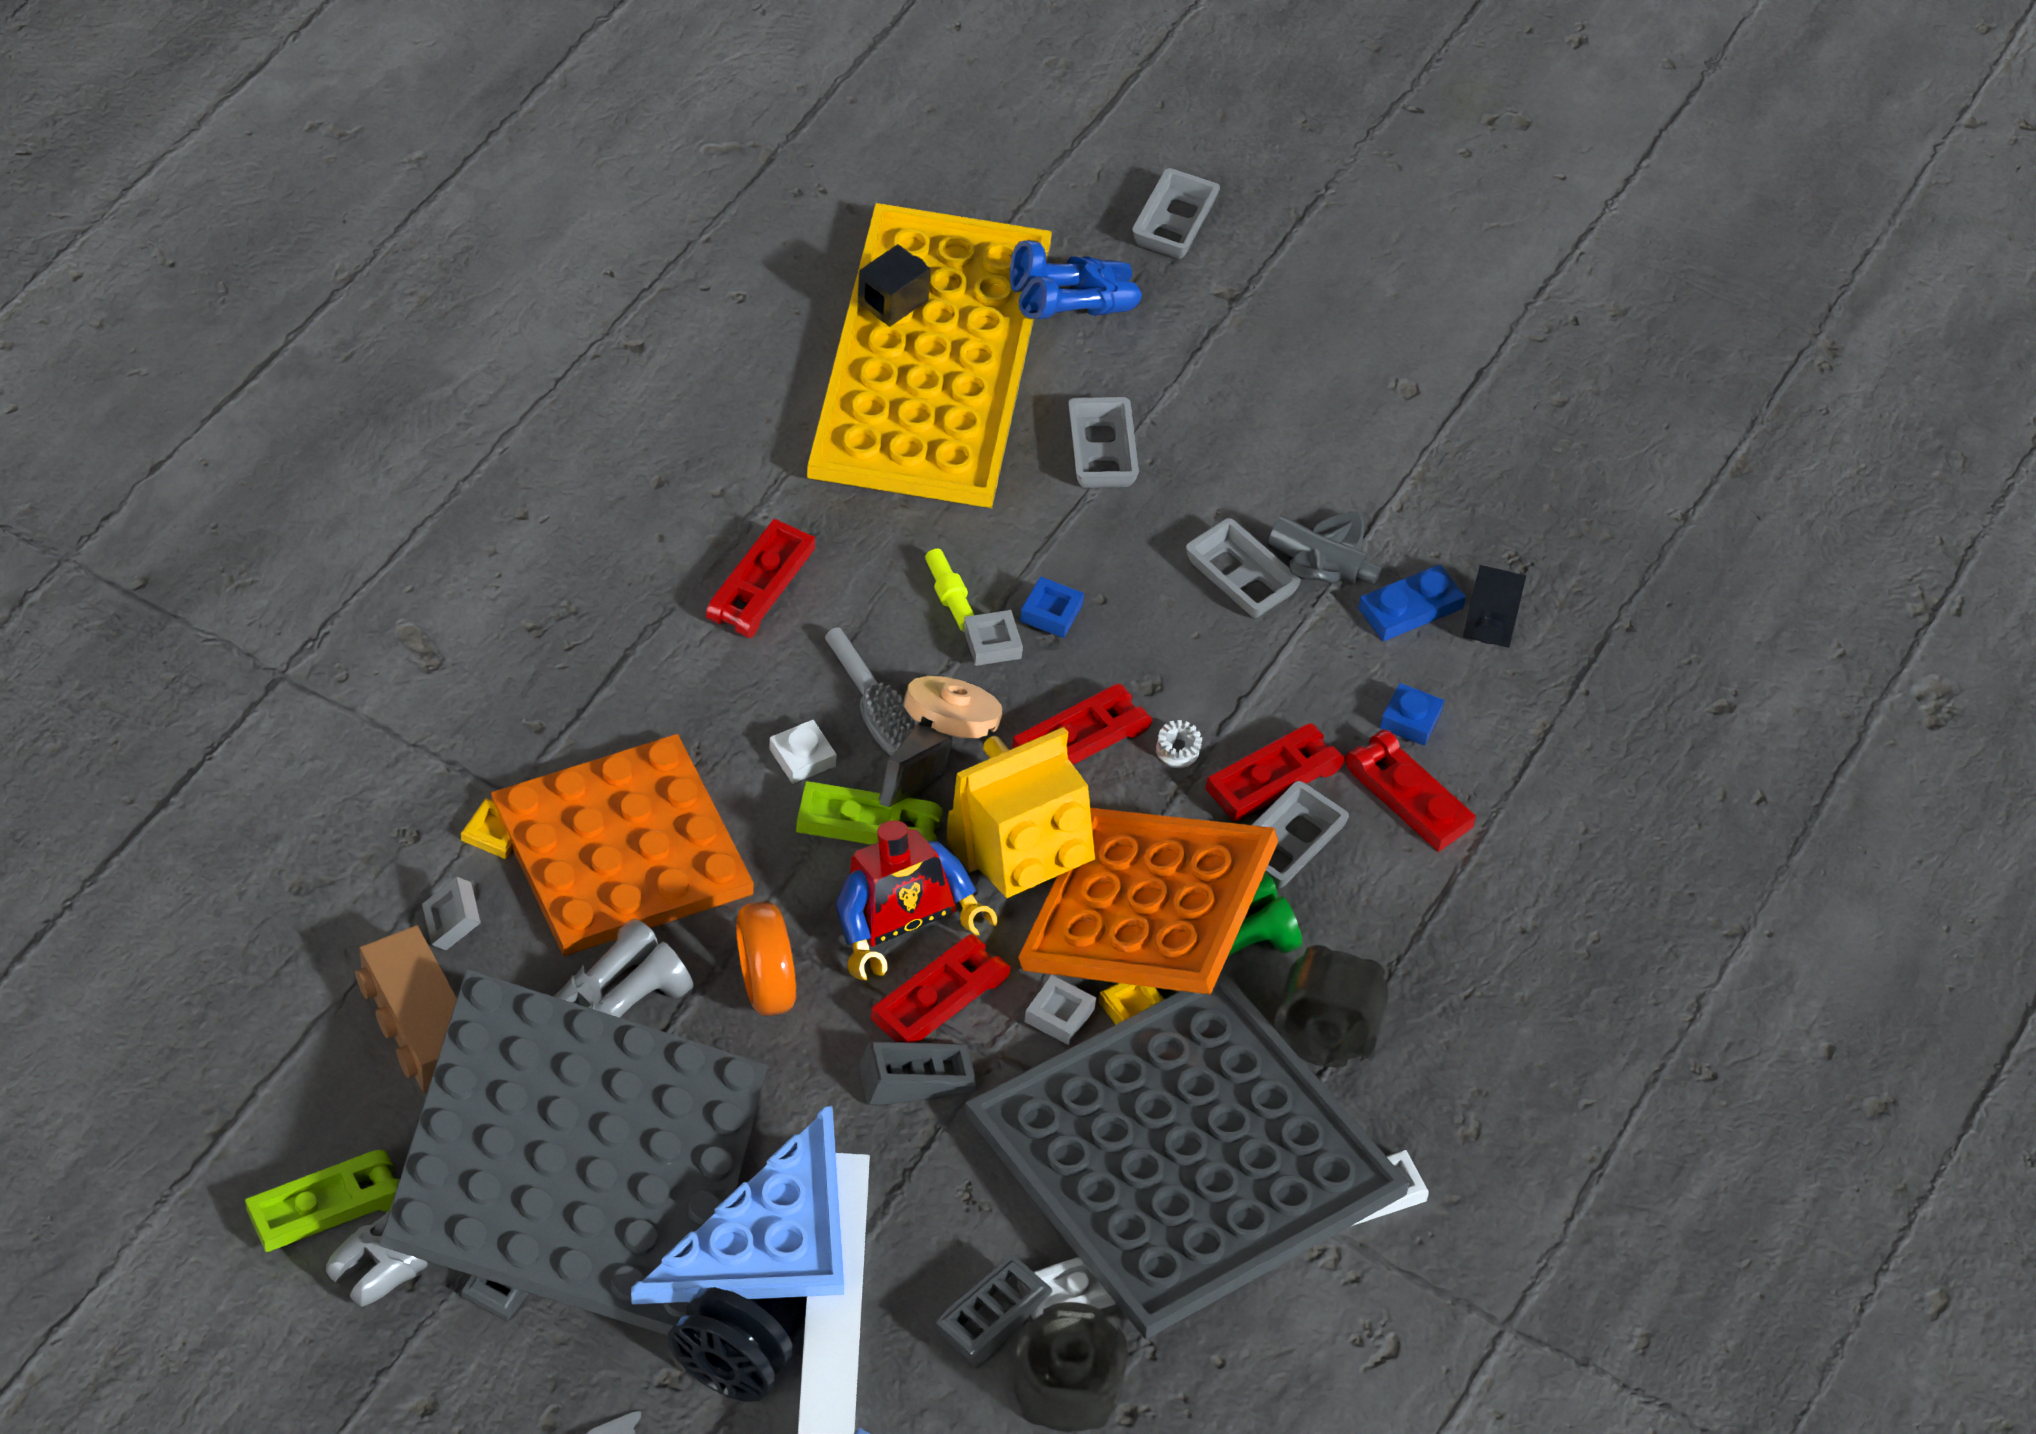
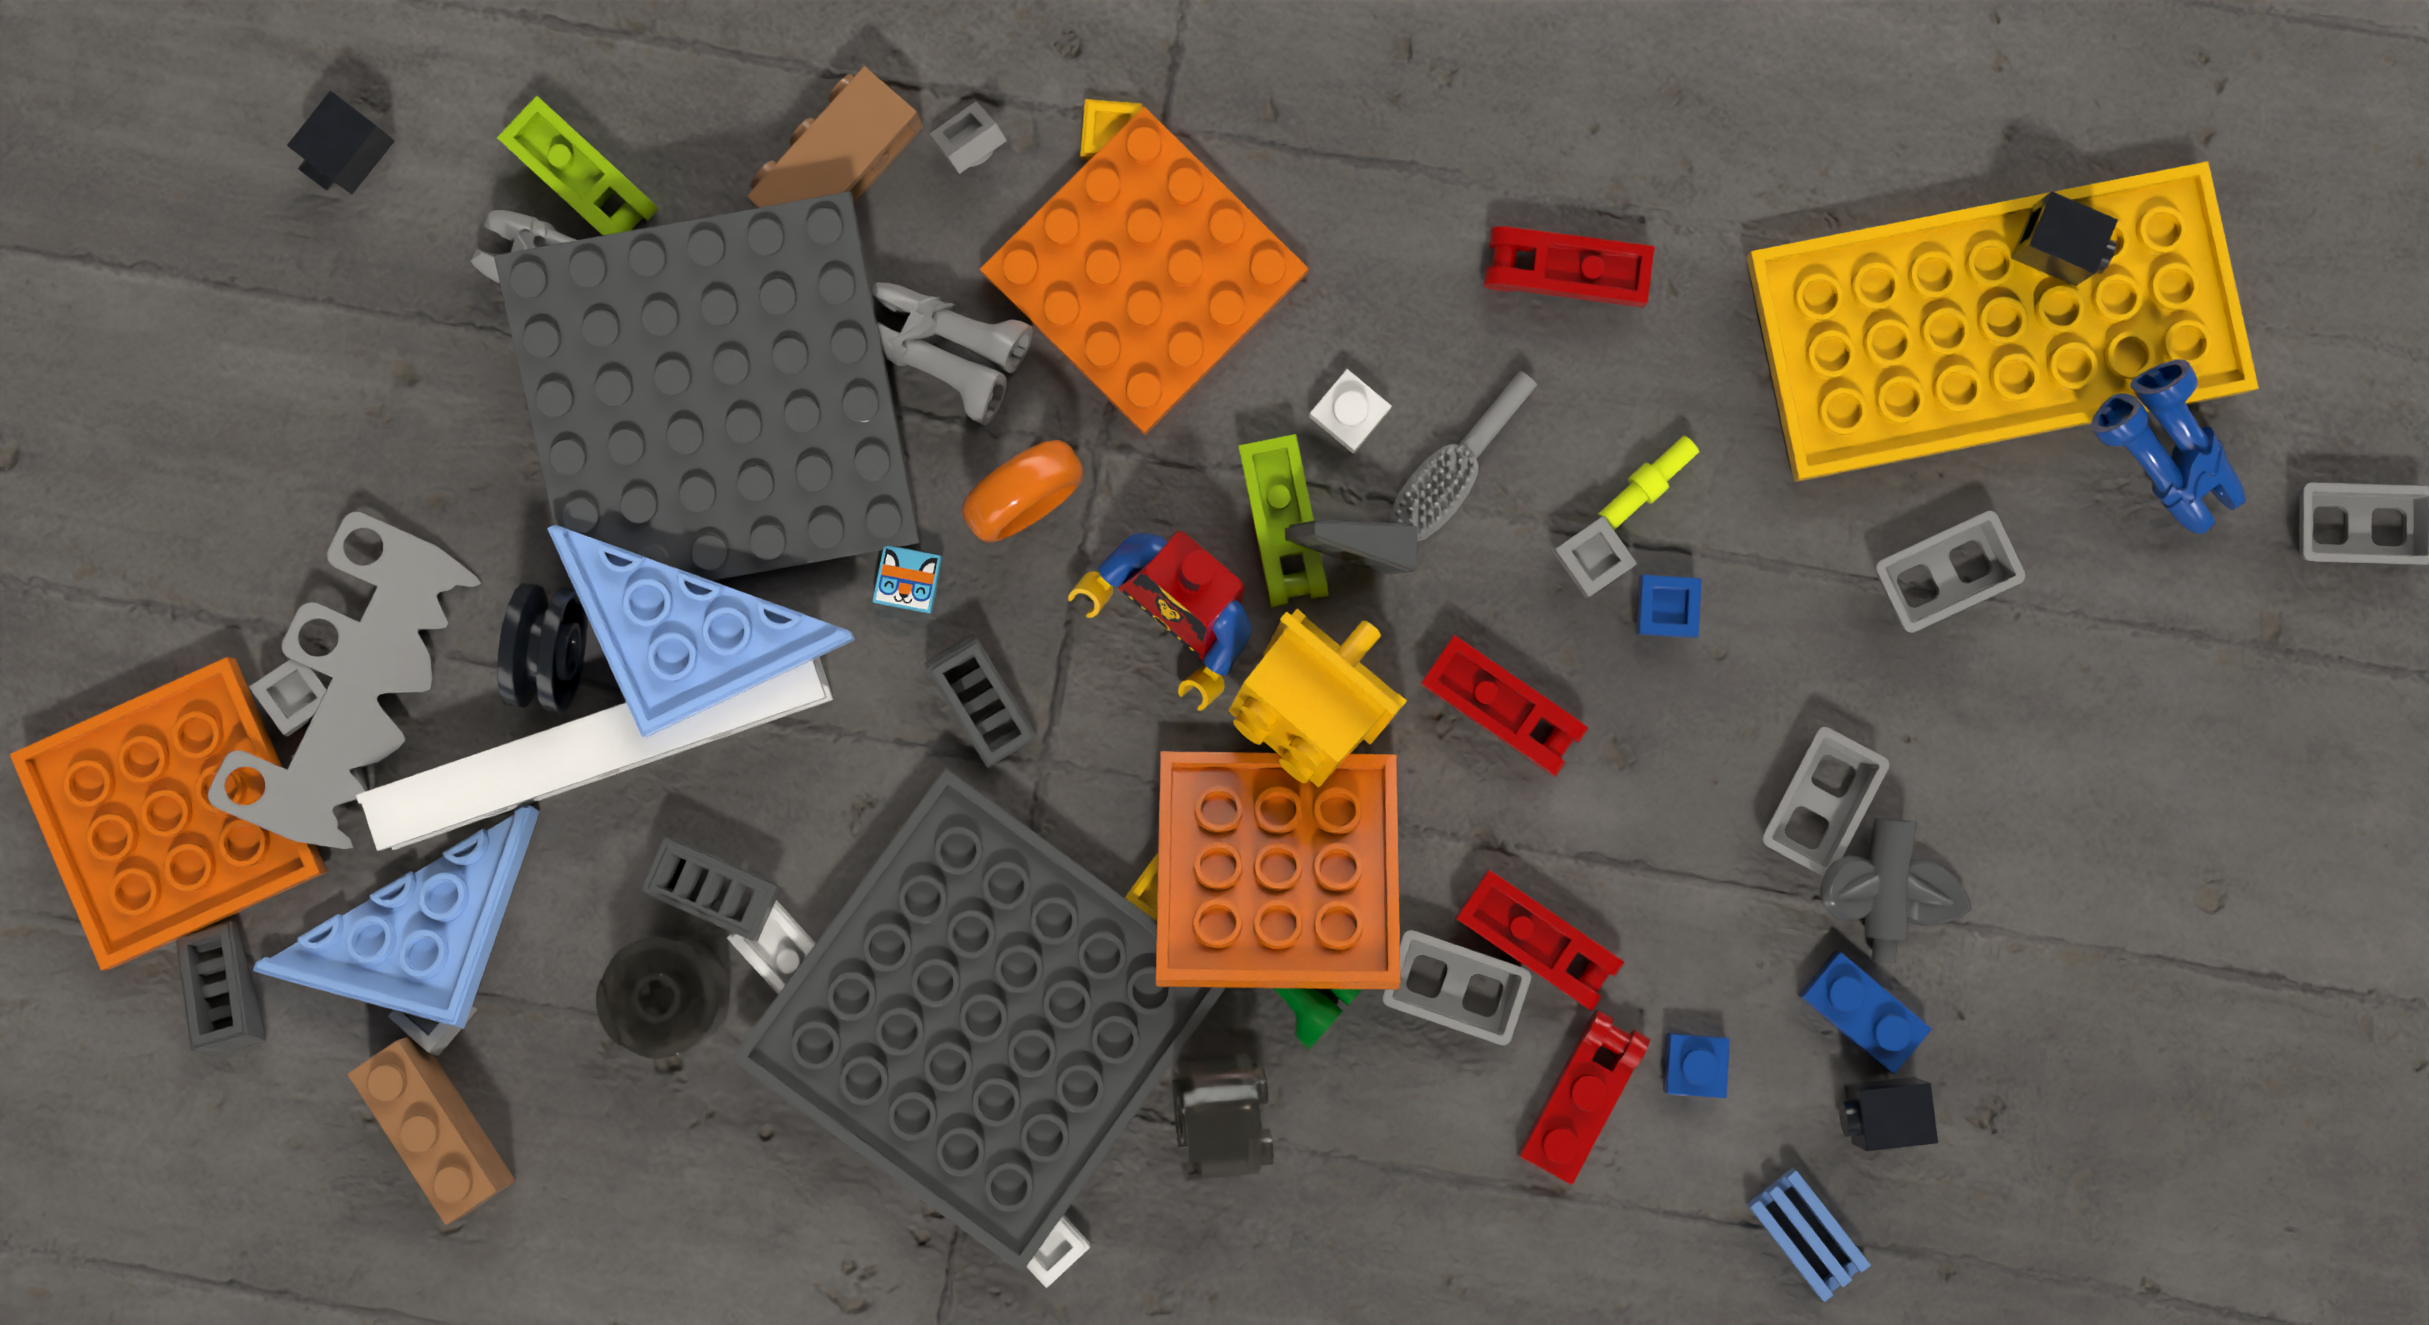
camera: 75 degrees right, 35 degrees up
(200, 1366) = (339, 145): none -> black brick
(793, 1088) = (908, 579): none -> tile
(939, 991) = (1085, 683): red plate -> none
(953, 706) = (1444, 555): light nougat plate -> none
(1060, 1009) = (1114, 820): light grey plate -> none
(1168, 736) = (1551, 829): white bush -> none
(1565, 685) = (1839, 1274): none -> medium blue tile

